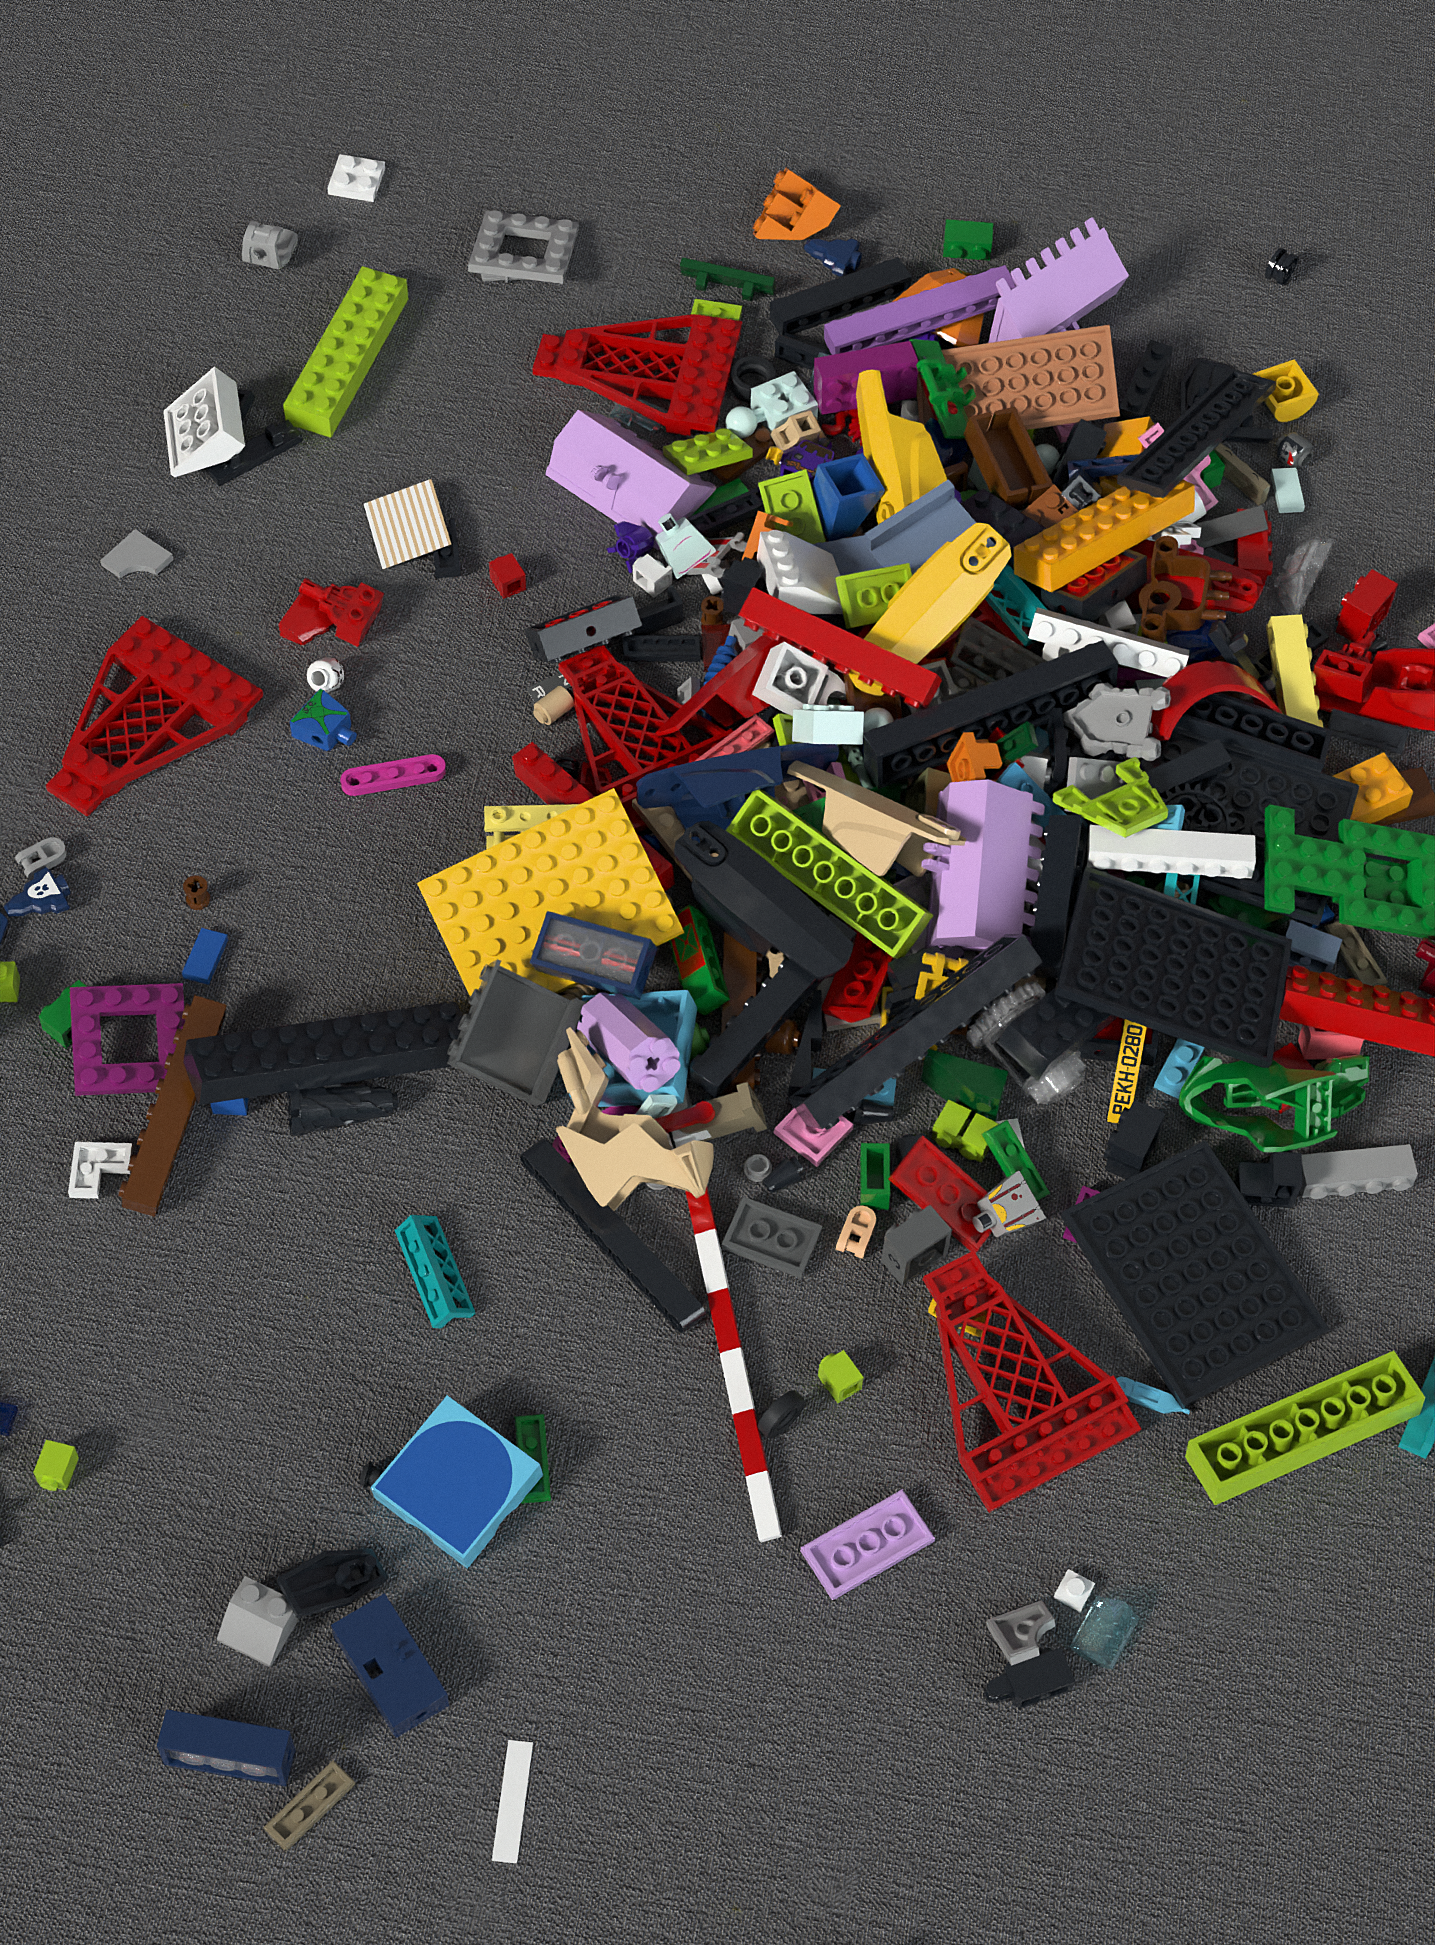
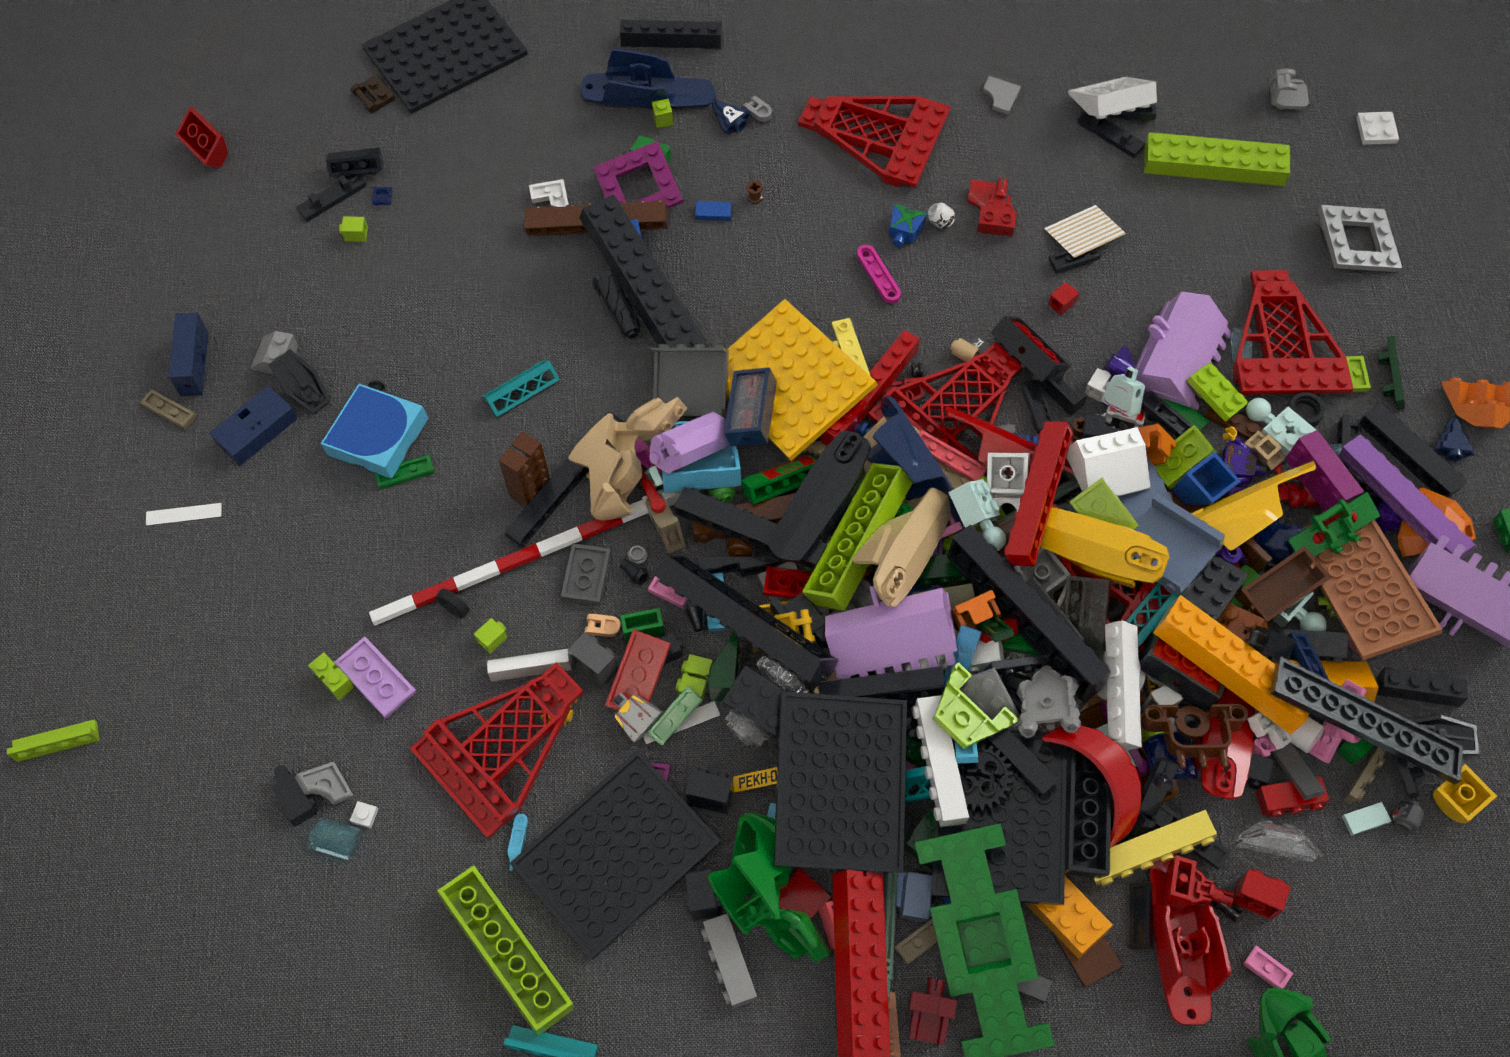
camera: 80 degrees right, 5 degrees up
(606, 1259) = (523, 474): none -> reddish brown piece
(844, 1605) = (331, 676): none -> lime piece
(894, 1333) = (527, 664): none -> white brick

